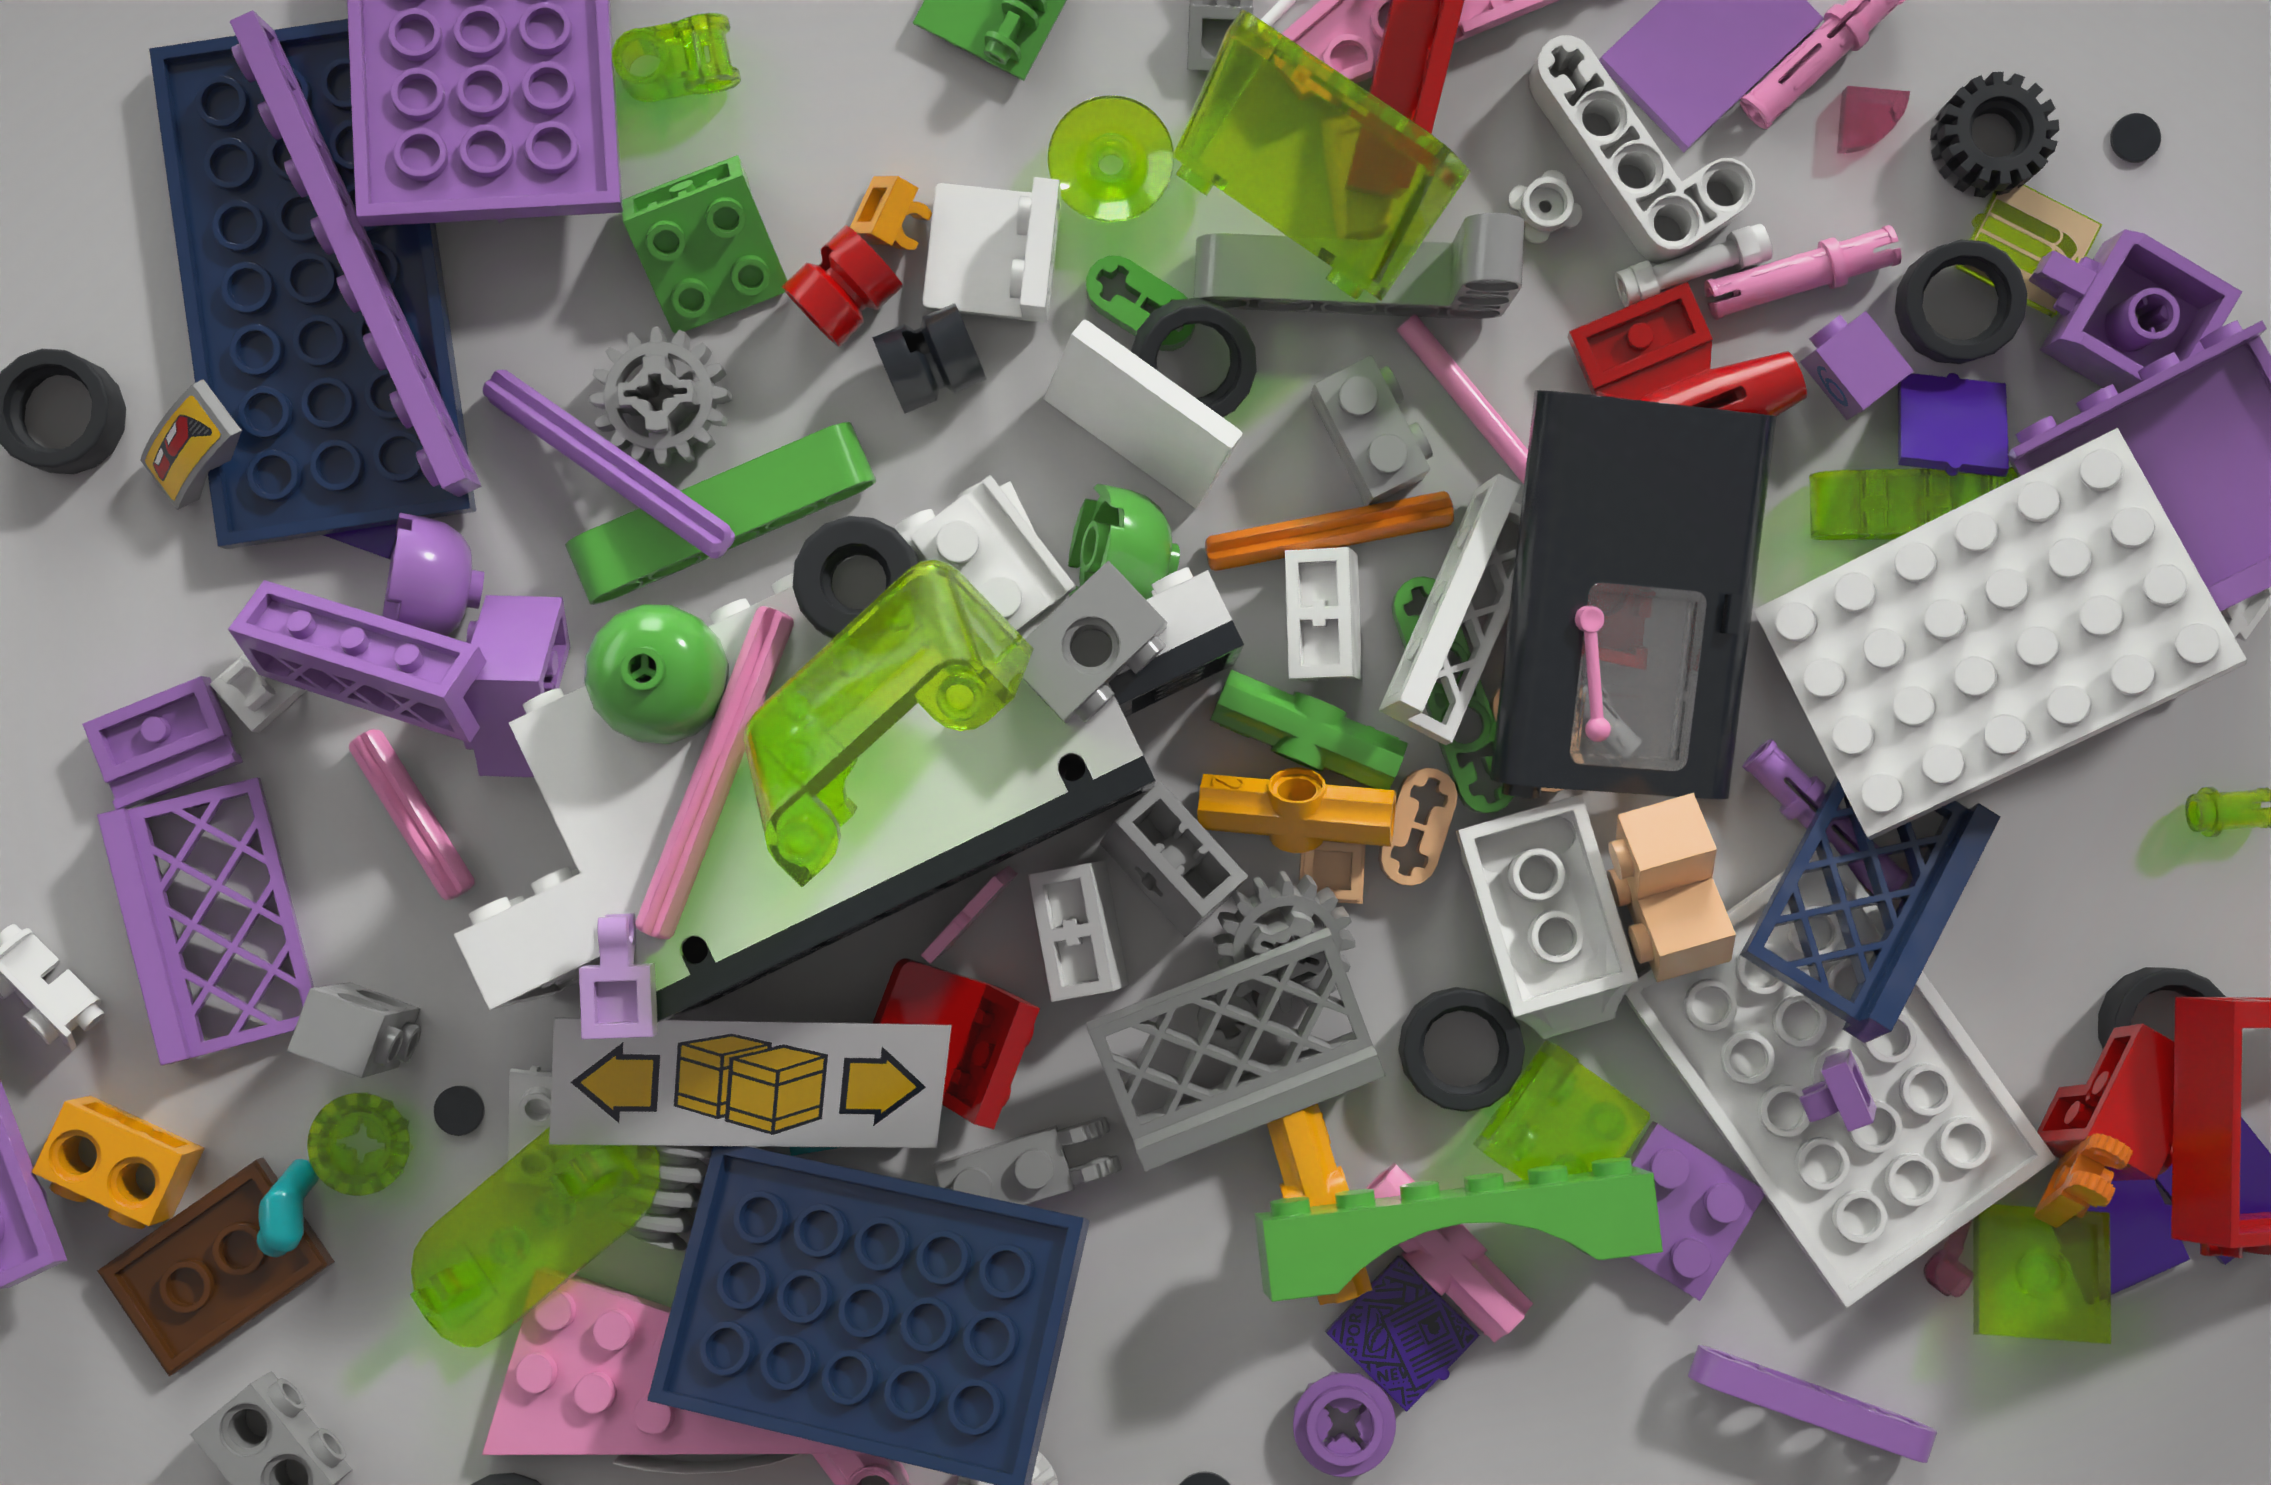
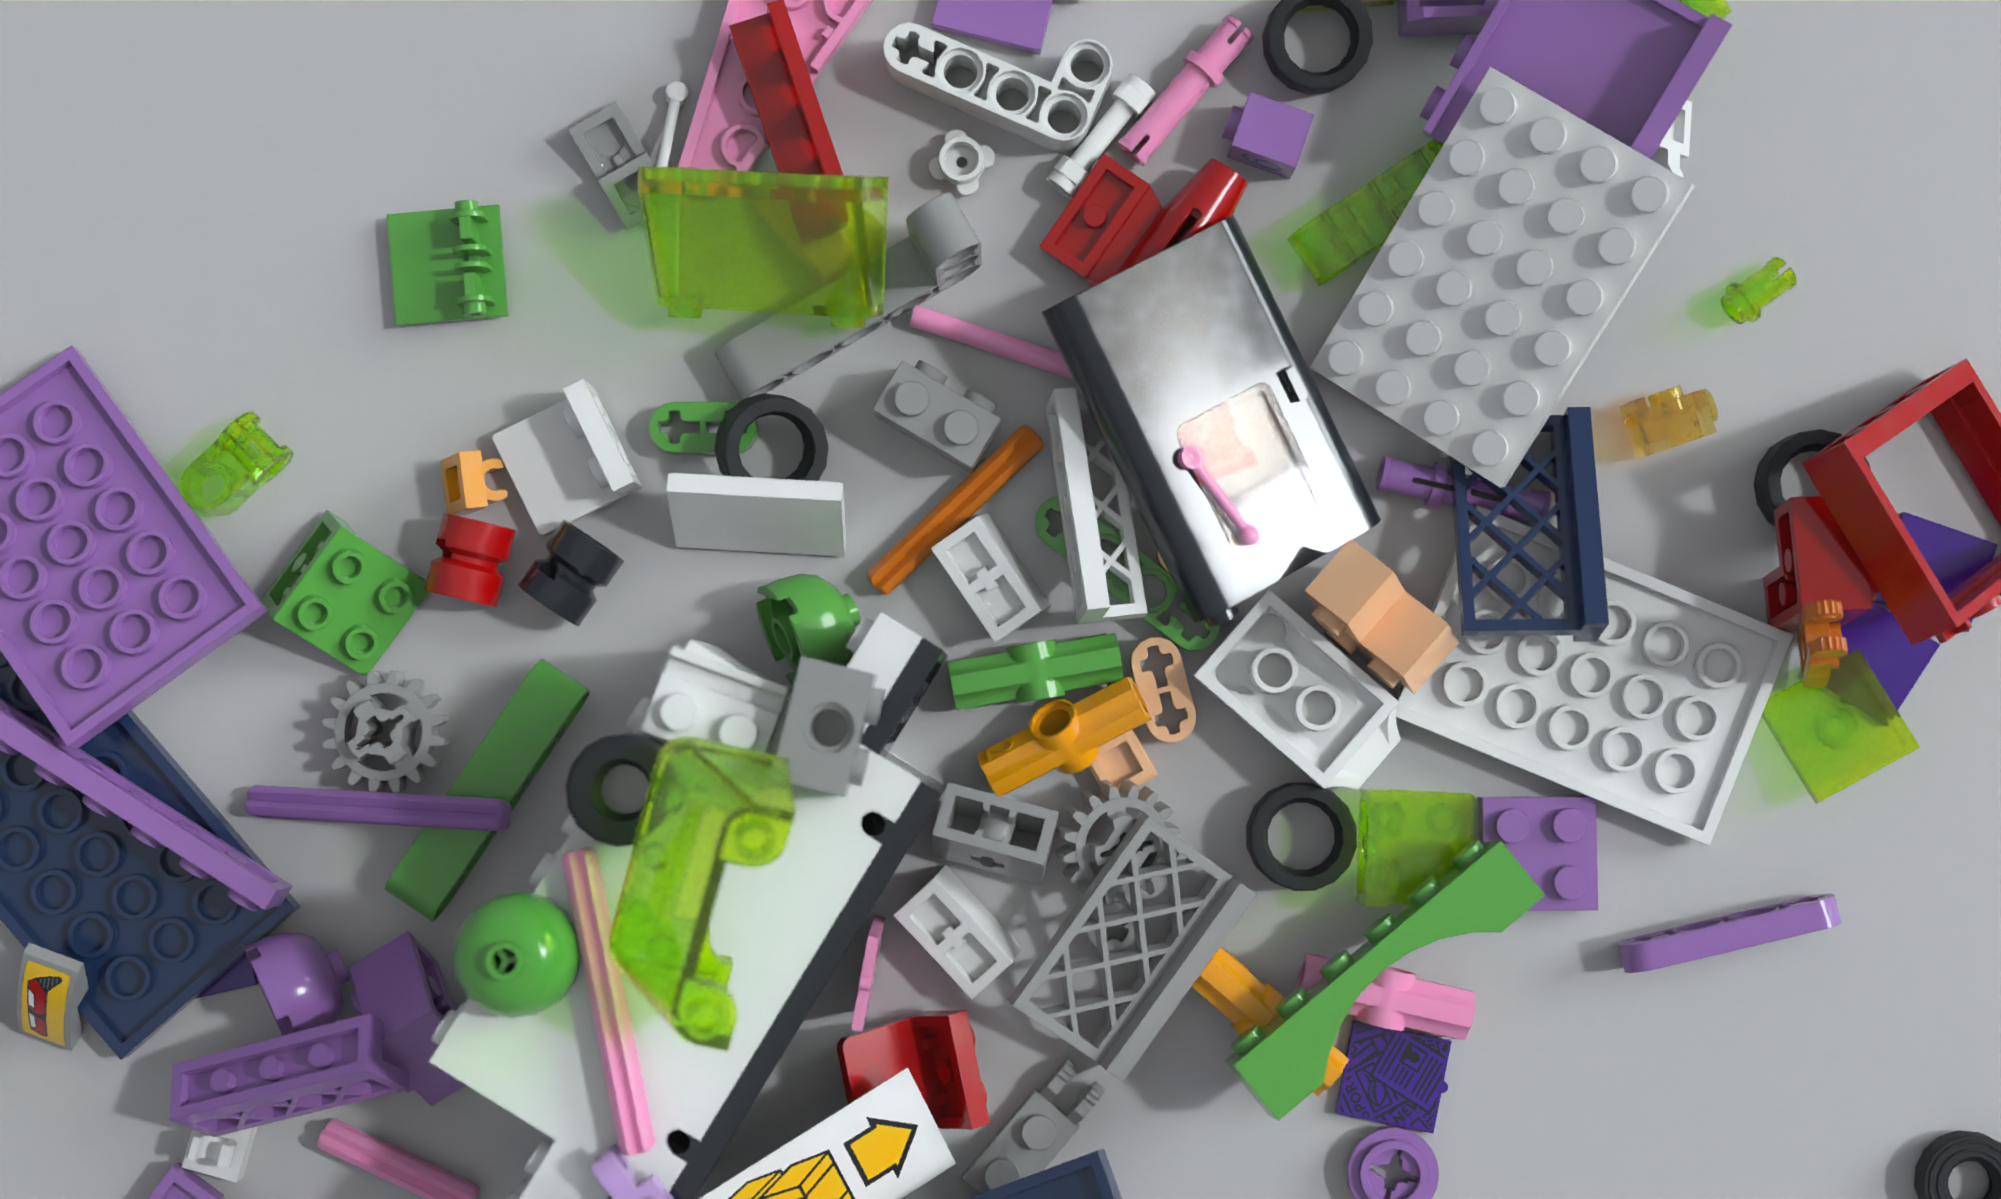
camera: 35 degrees left, 0 degrees up
(1119, 129) = (595, 311): clear neon green dish -> none
(1842, 1092) = (1602, 688): medium lavender tile -> none
(1944, 1269) = (1766, 769): clear pink hand -> none
(1953, 424) = (1369, 134): dark purple piece -> none
(2066, 878) = (1669, 420): none -> clear yellow brick

